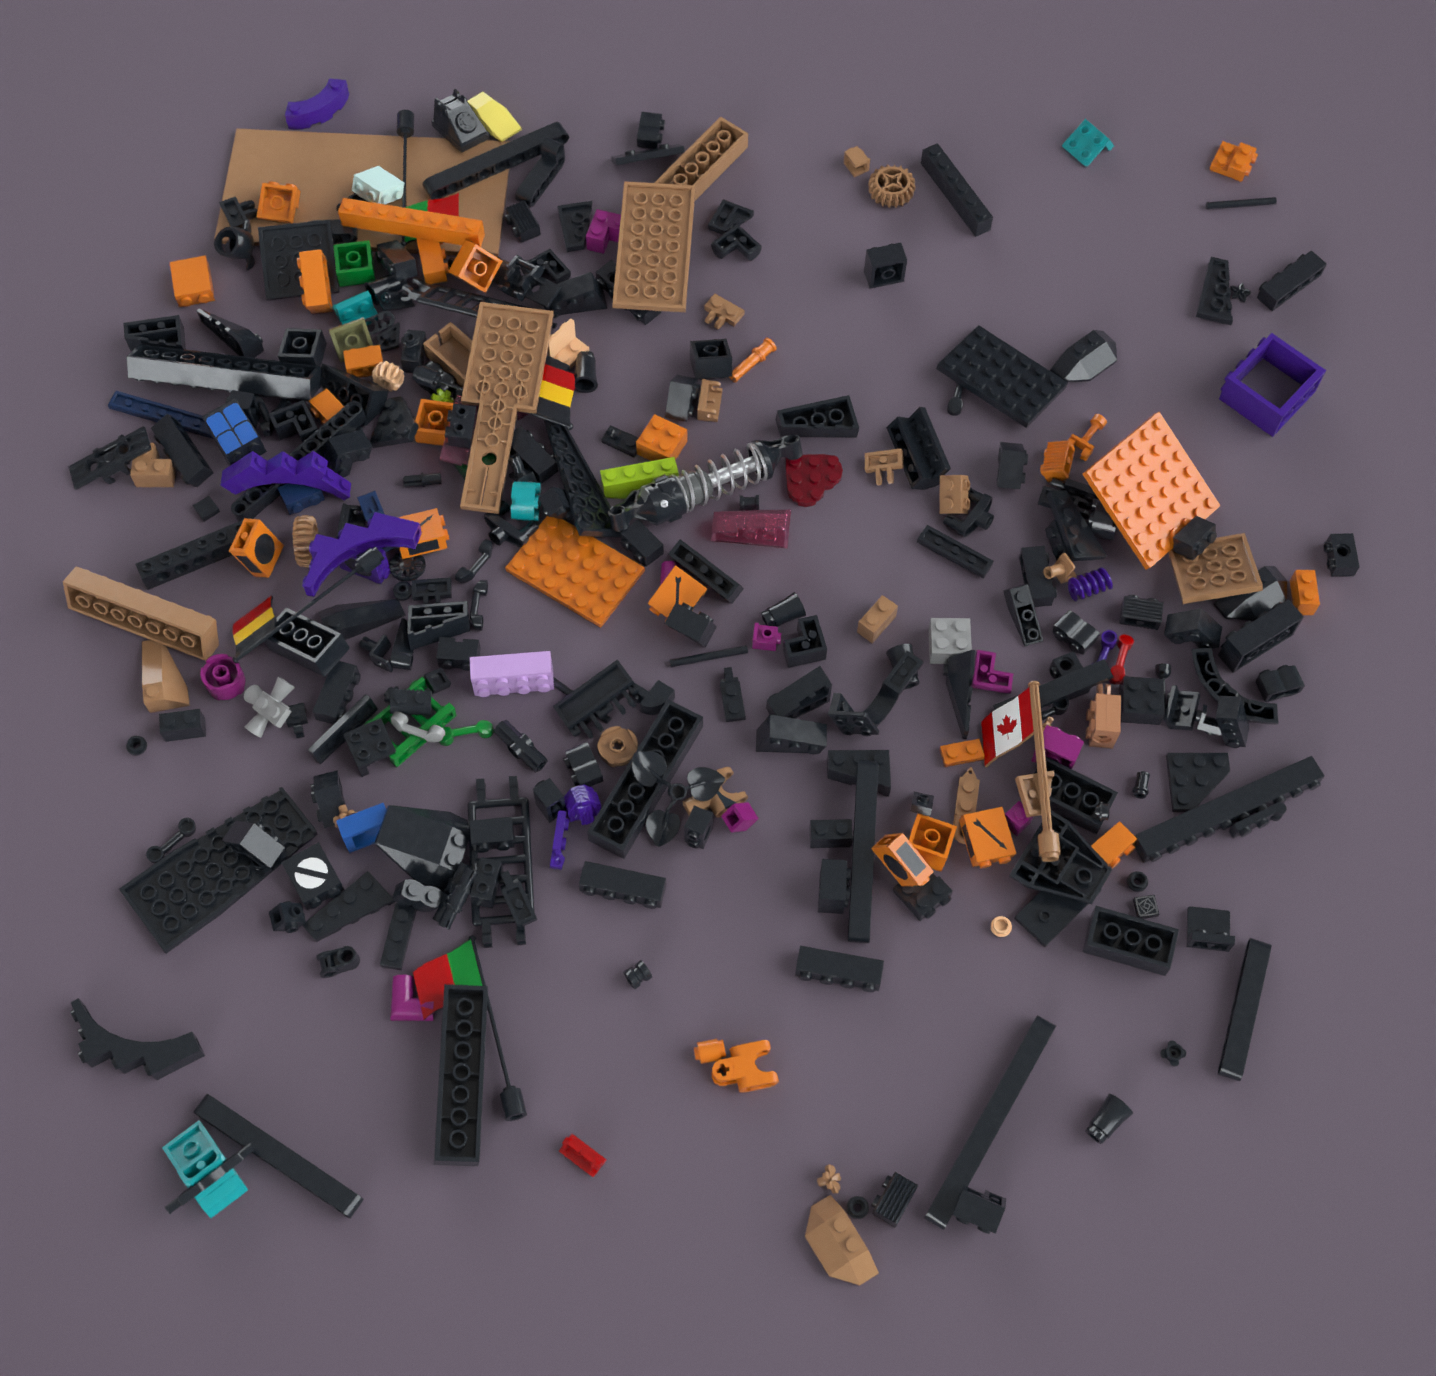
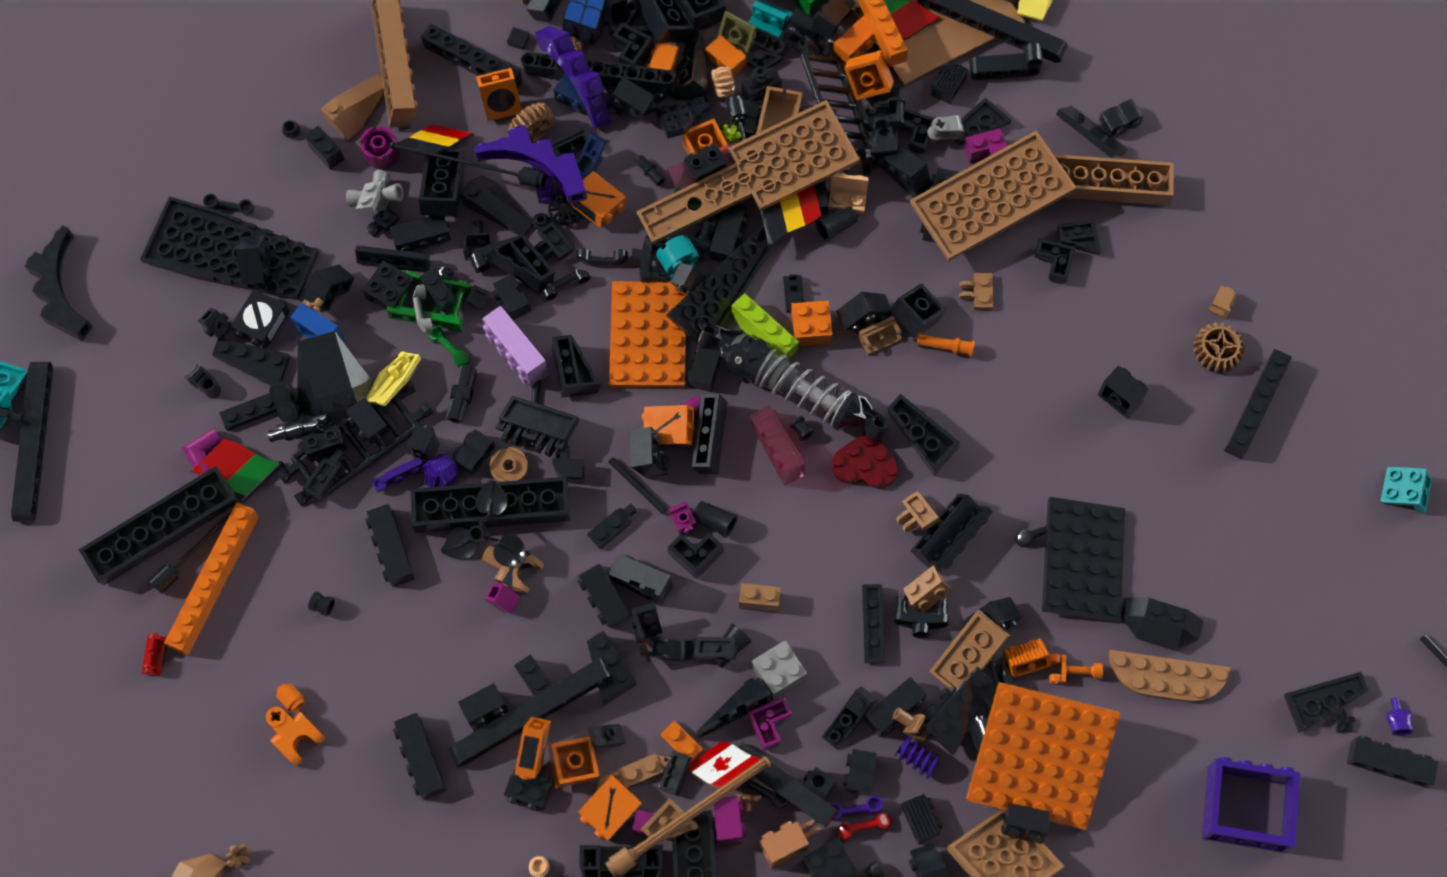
camera: 60 degrees right, 5 degrees up
(464, 792) = (393, 378): none -> light yellow piece
(546, 1059) = (211, 579): none -> orange brick
(564, 642) = (572, 370): none -> black wedge
(566, 245) = (946, 128): none -> light grey piece
(698, 827) = (470, 571): black brick -> none
(987, 771) = (675, 773): none -> black plate
(1029, 493) = (970, 649): none -> medium nougat tile
(1132, 381) = (1168, 677): none -> medium nougat plate
(1261, 257) = (1399, 719): none -> dark purple piece

